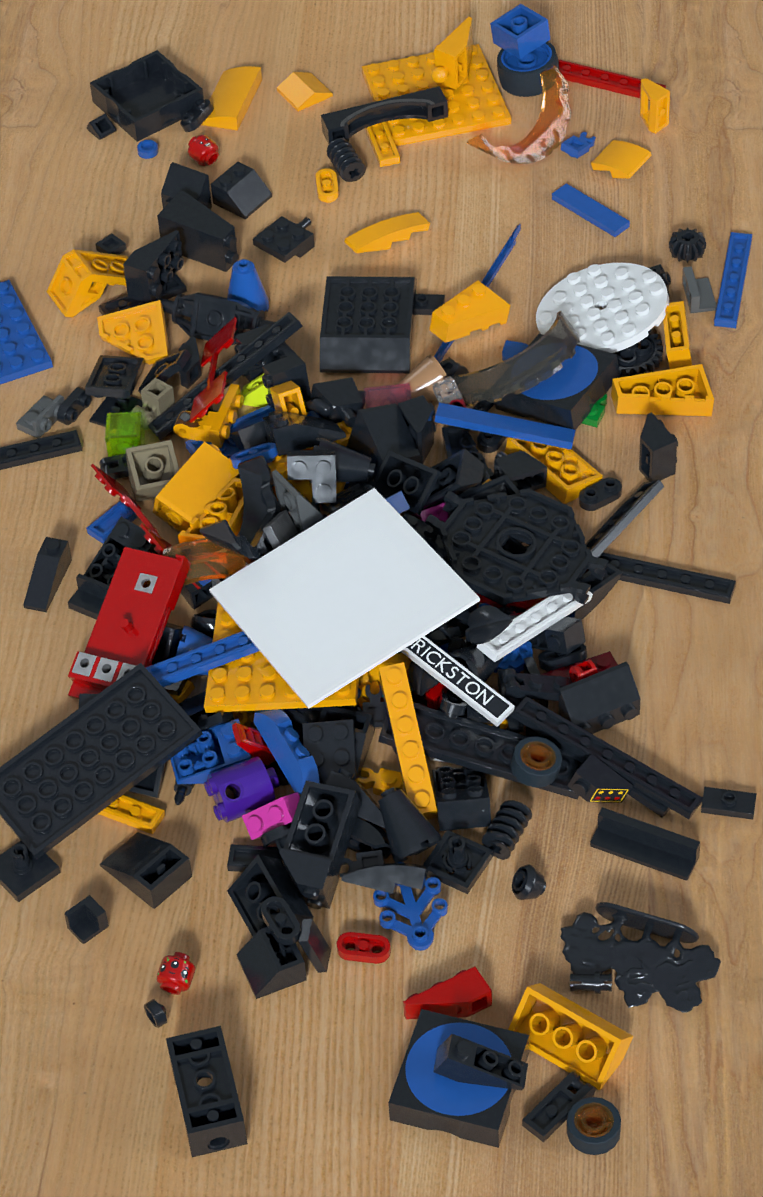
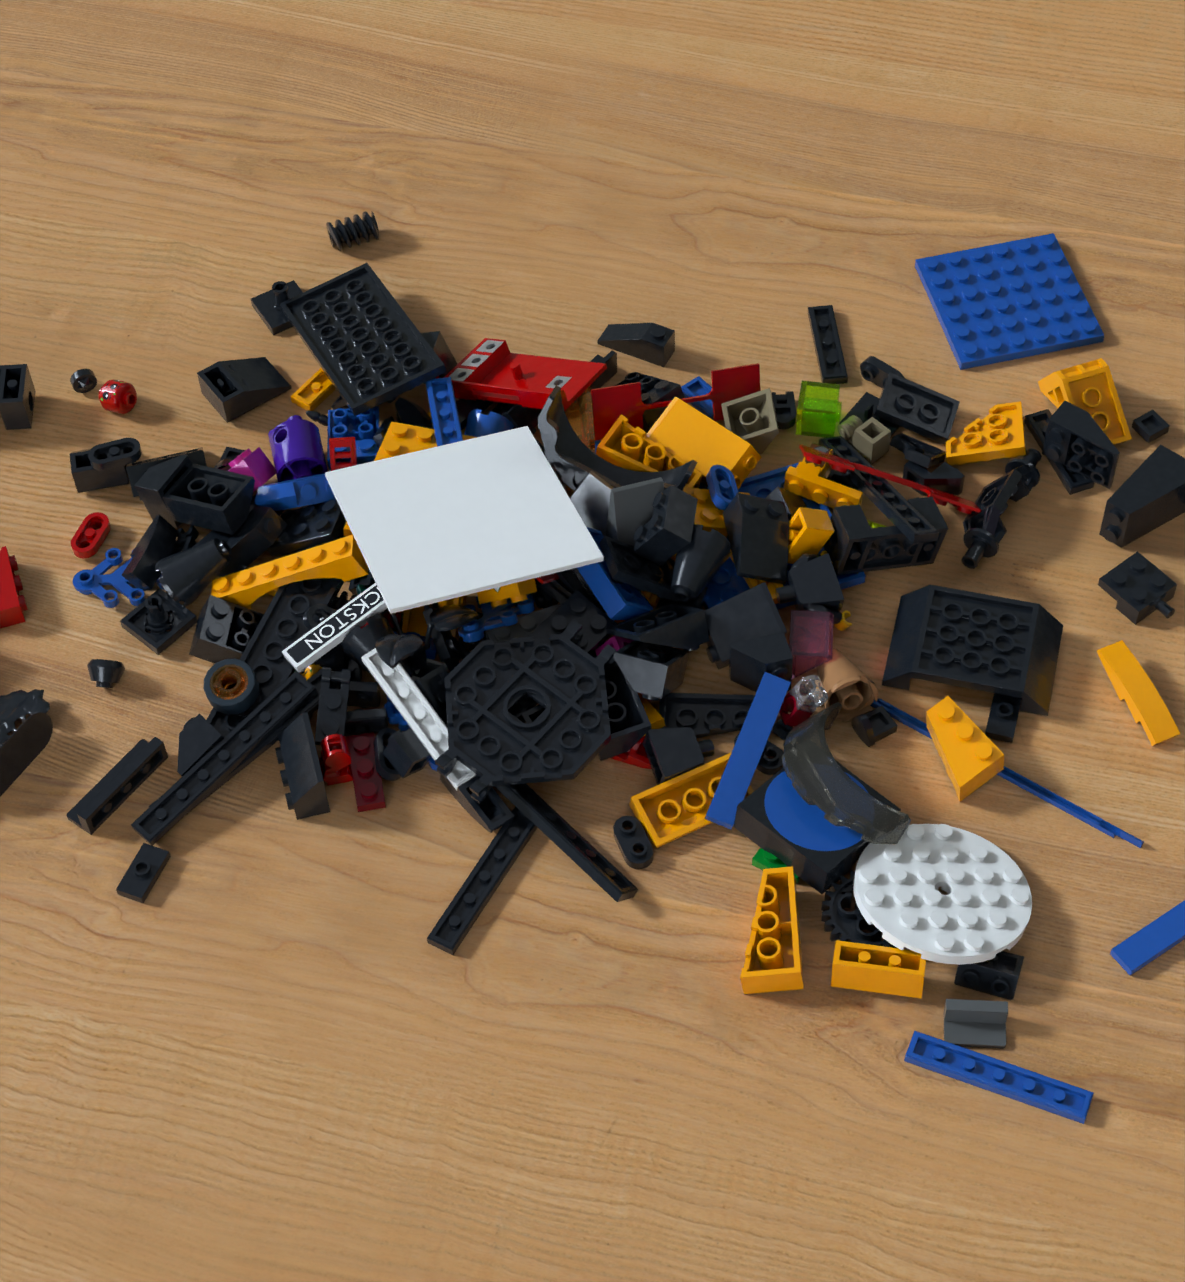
camera: 100 degrees right, 5 degrees up
(40, 416) = (873, 345): dark grey bracket -> none
(86, 919) = (206, 346): black panel -> none
(247, 286) = (1036, 536): blue cone -> none
(314, 945) = (94, 488): black tile -> none
(506, 828) = (176, 663): black piece -> none
(512, 348) = (899, 794): blue tile -> none
(657, 450) = (673, 897): black slope -> none
(687, 245) = (1062, 1018): black gear -> none

